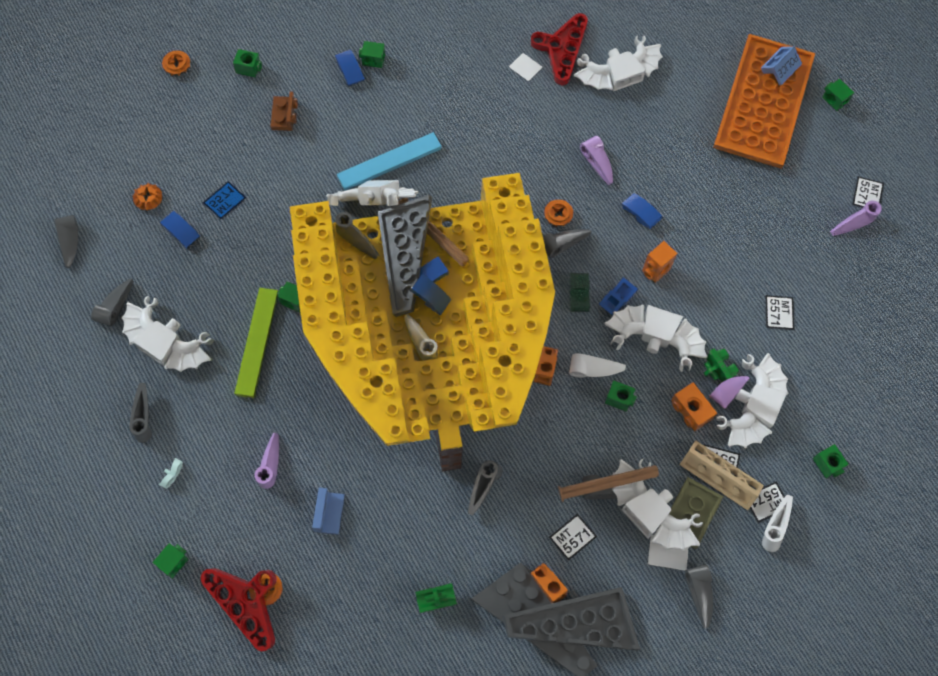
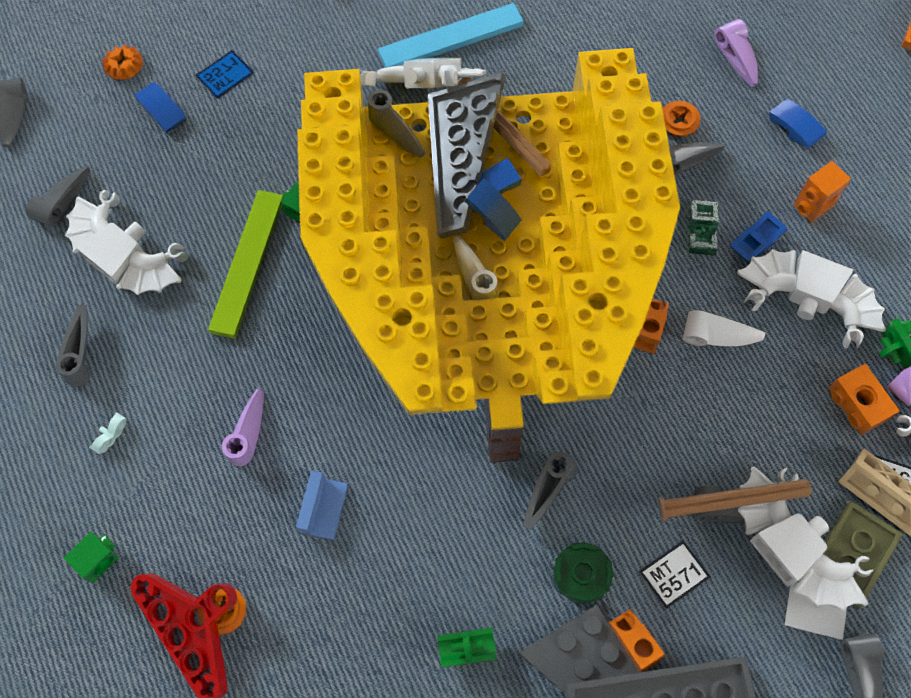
camera: 10 degrees right, 0 degrees up
(510, 541) = (583, 573): none -> dark green tile
(619, 388) = (754, 364): green brick -> none

